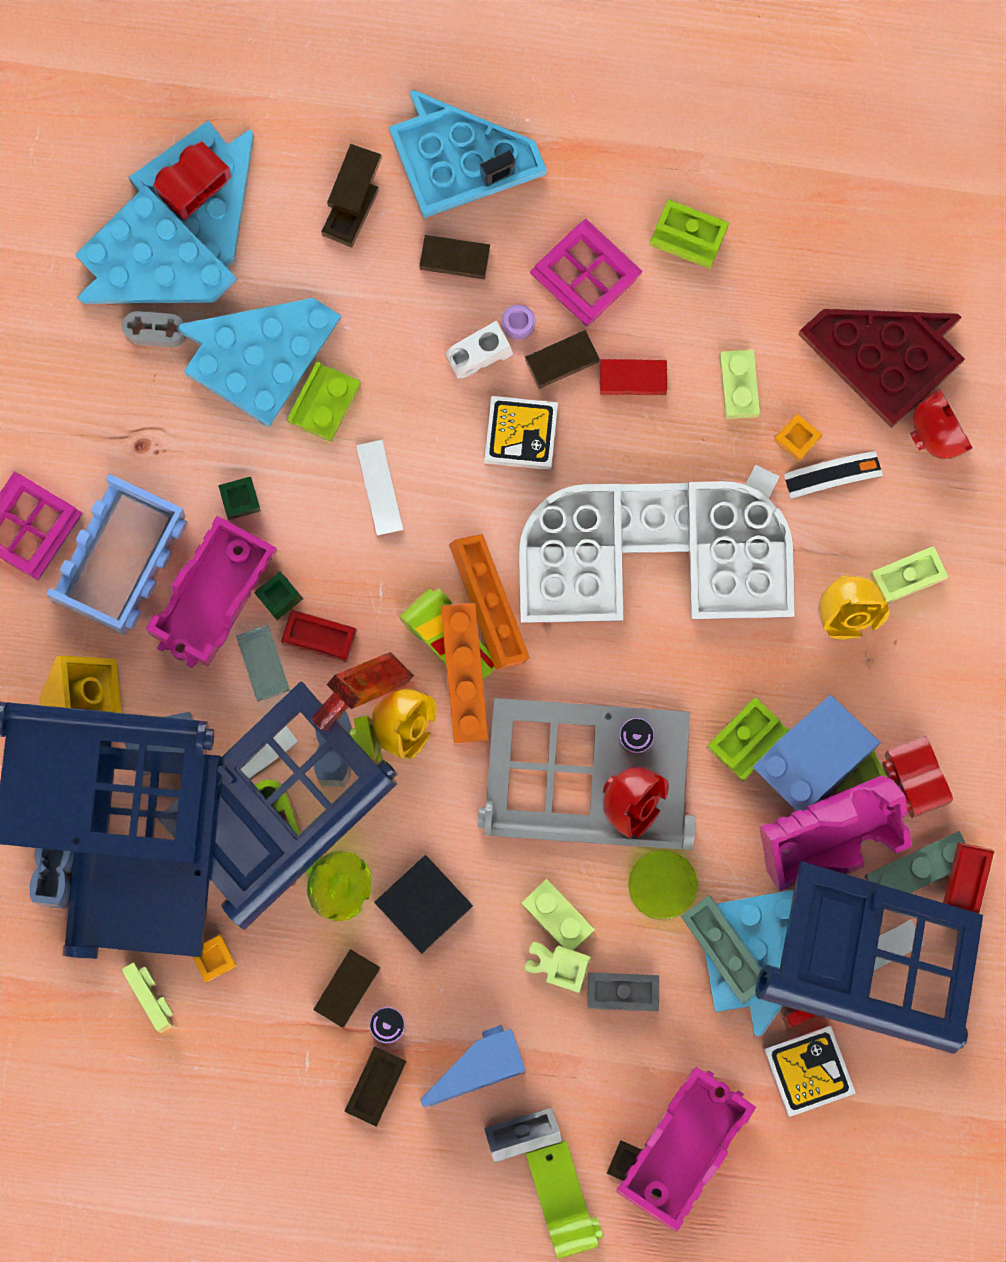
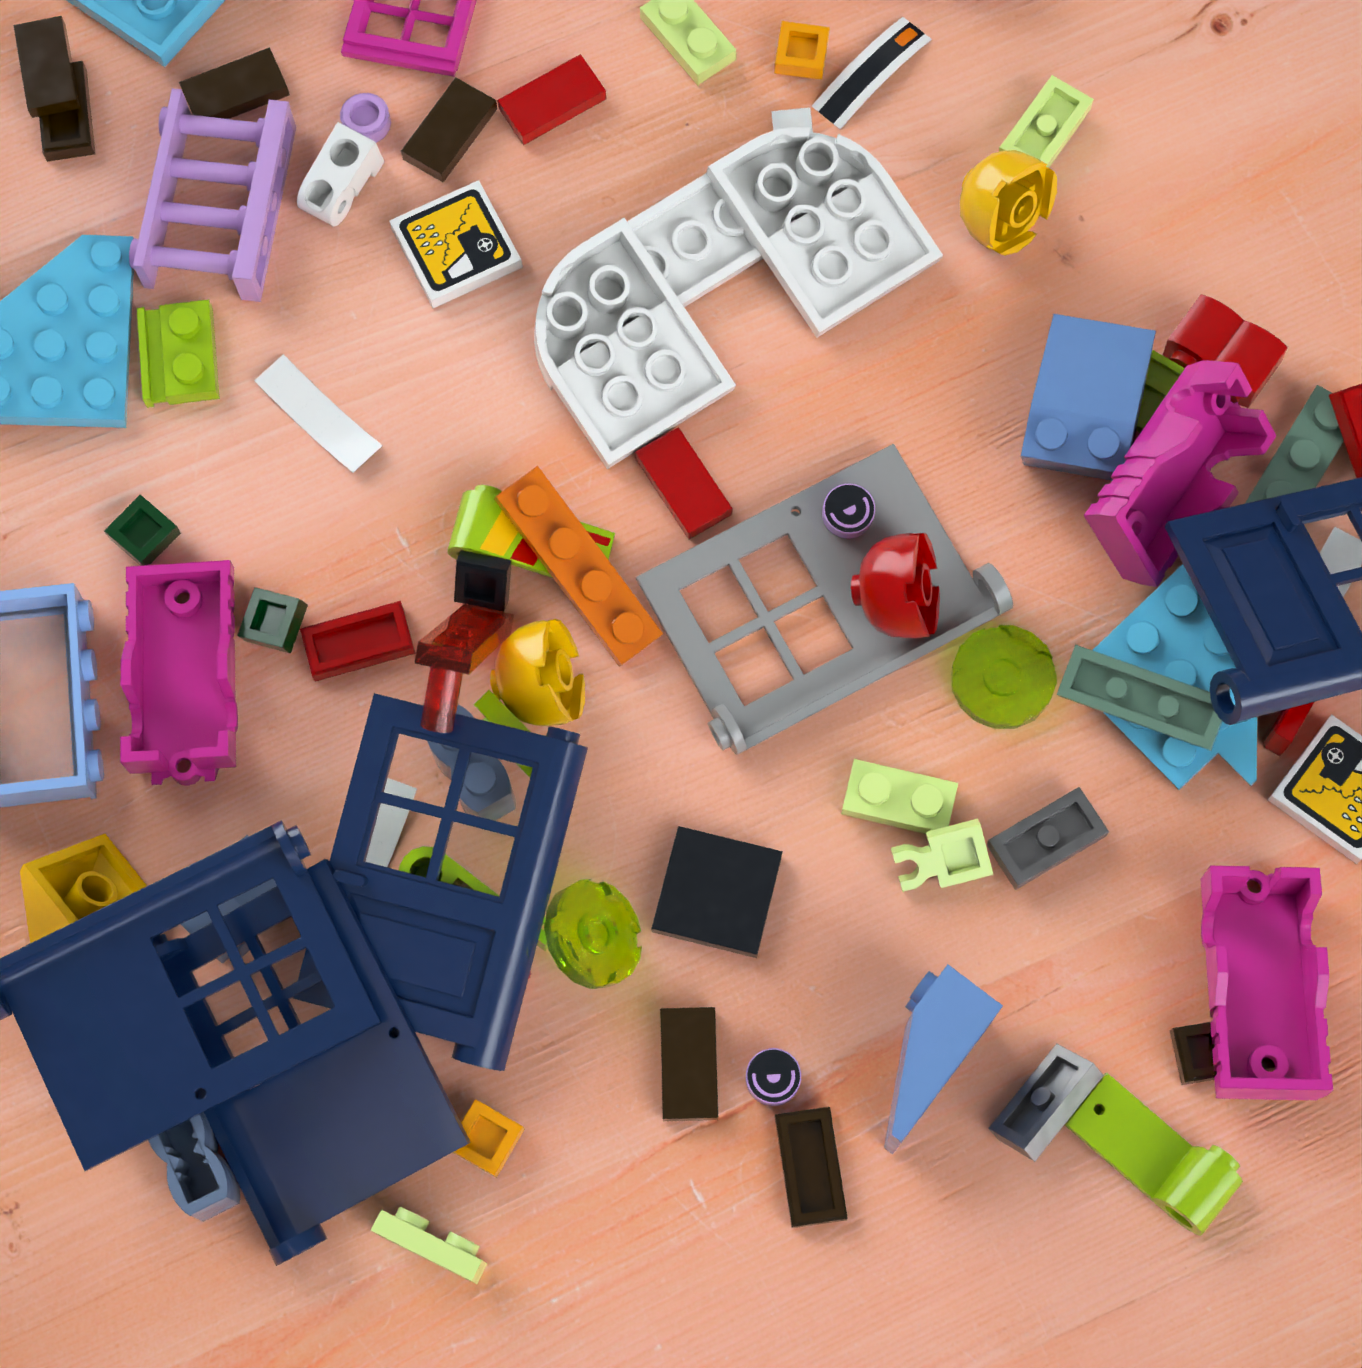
camera: 30 degrees left, 5 degrees down
(263, 663) = (306, 719): clear light blue tile -> none
(407, 646) = (482, 580): none -> black tile
(413, 349) = (253, 222): none -> lavender fence
(491, 602) = (577, 479): orange plate -> none
(557, 658) = (683, 483): none -> red tile
(747, 738) = (987, 433): lime plate -> none

